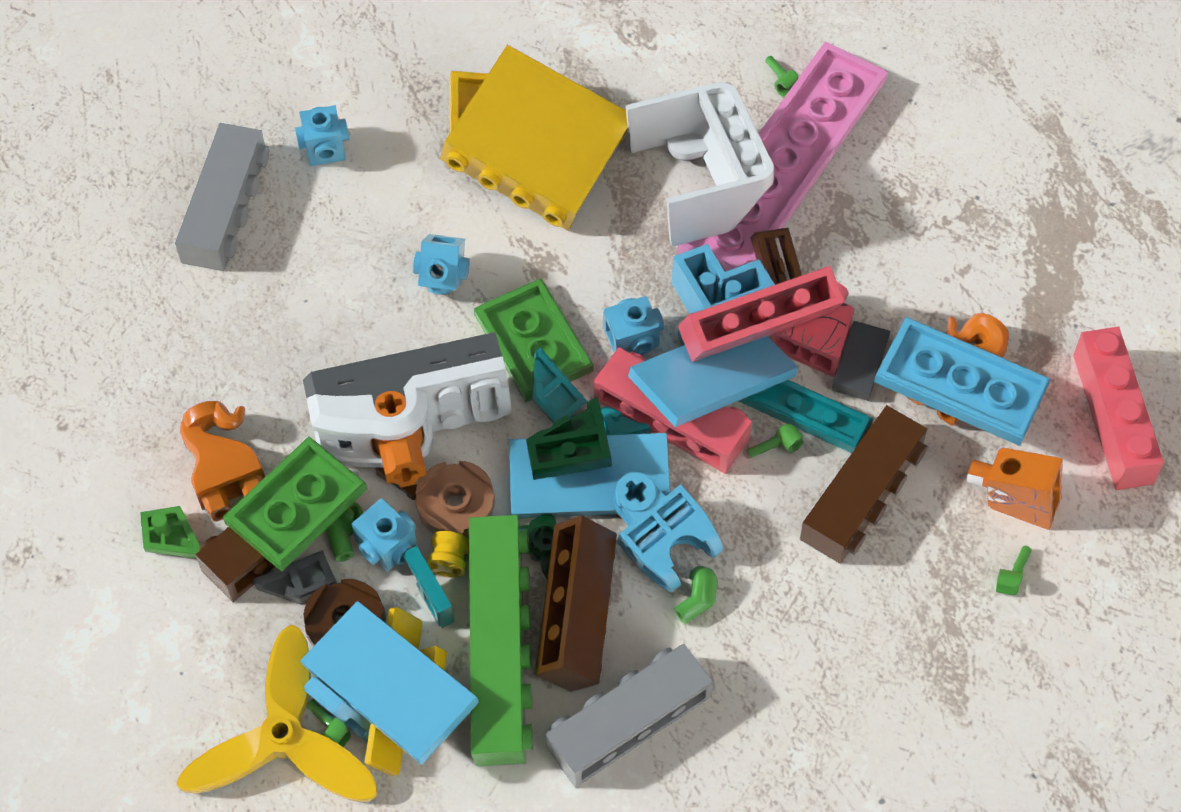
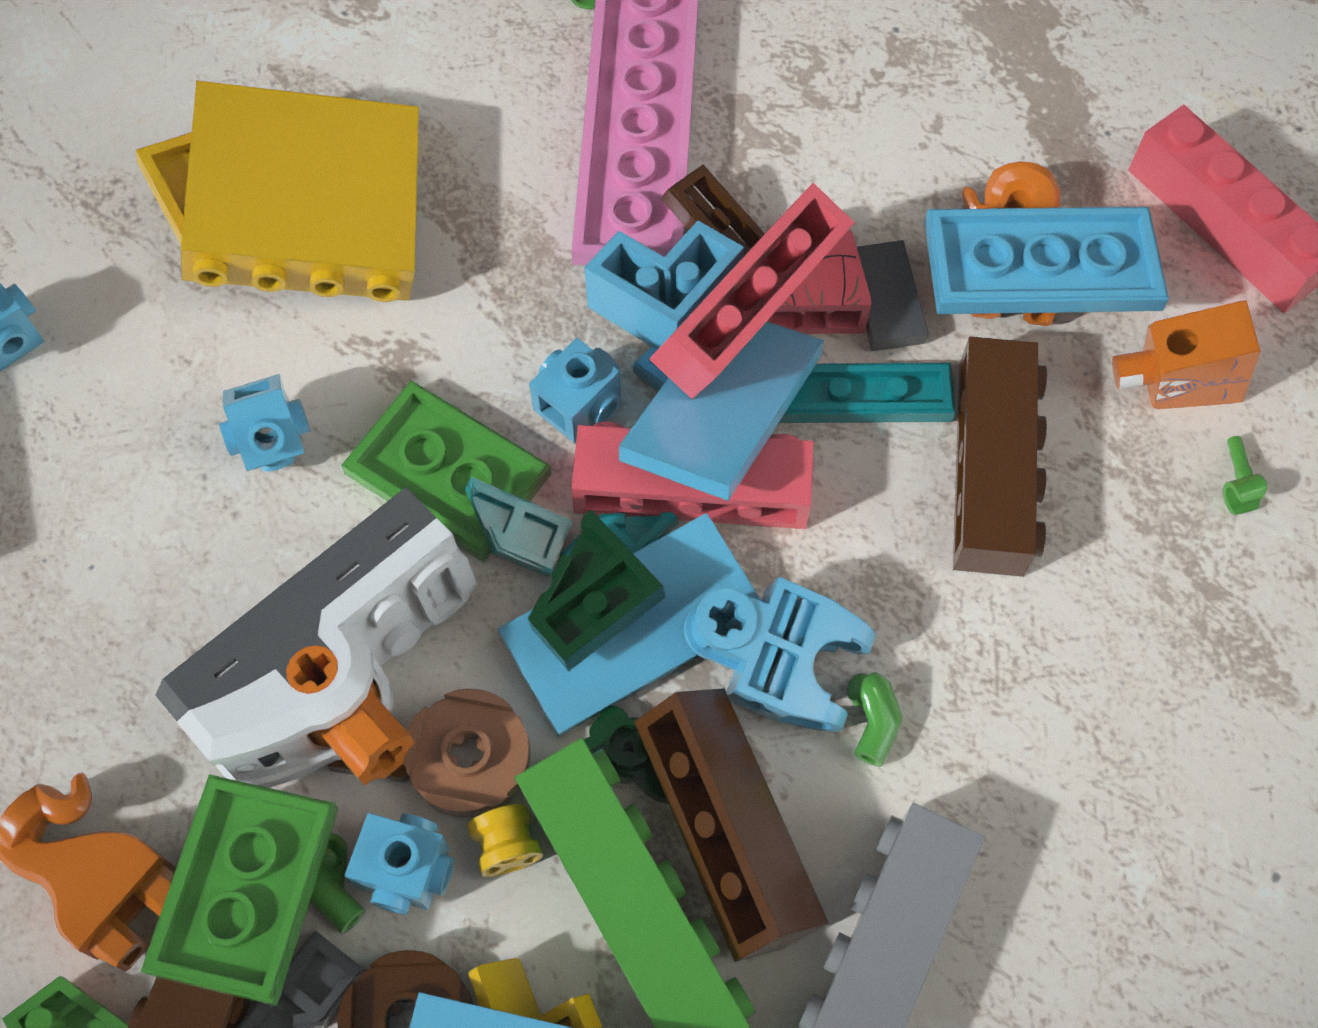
camera: 30 degrees left, 5 degrees up
(429, 588) = (505, 905): teal tile -> none
(712, 125) = (568, 87): white windscreen -> none
(787, 436) = (860, 440): bright green hand -> none

